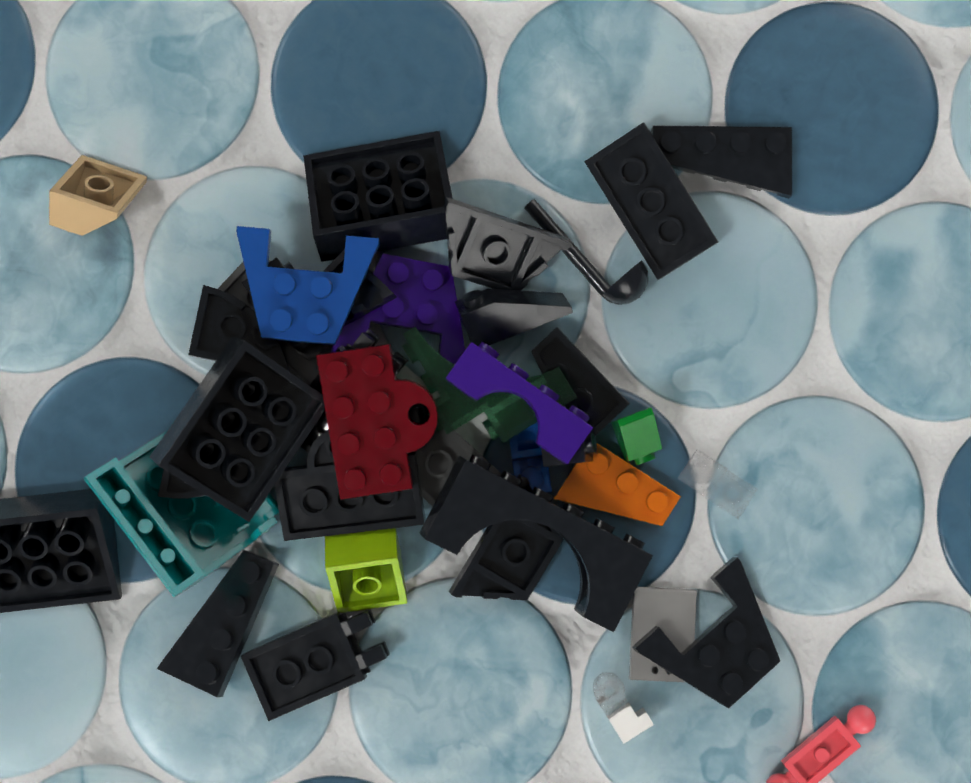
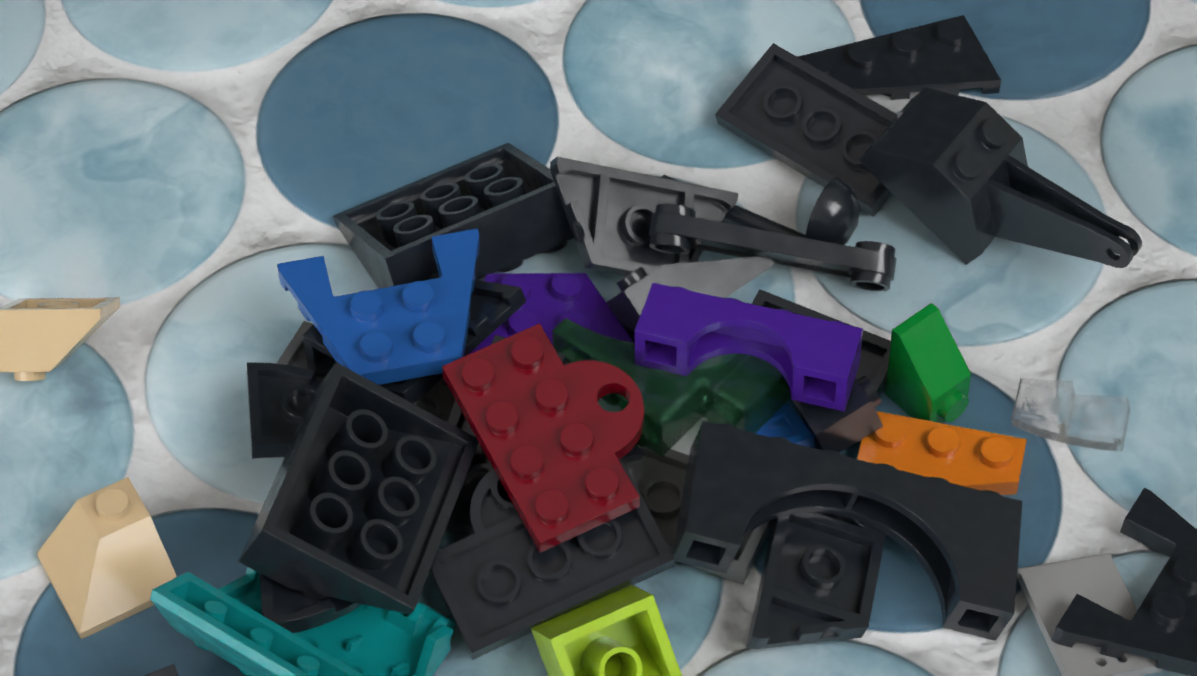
camera: 15 degrees left, 35 degrees down
(89, 391) = (105, 558): none -> tan slope
(517, 270) = (677, 229): none -> black piece
(725, 288) = (972, 182): none -> black slope

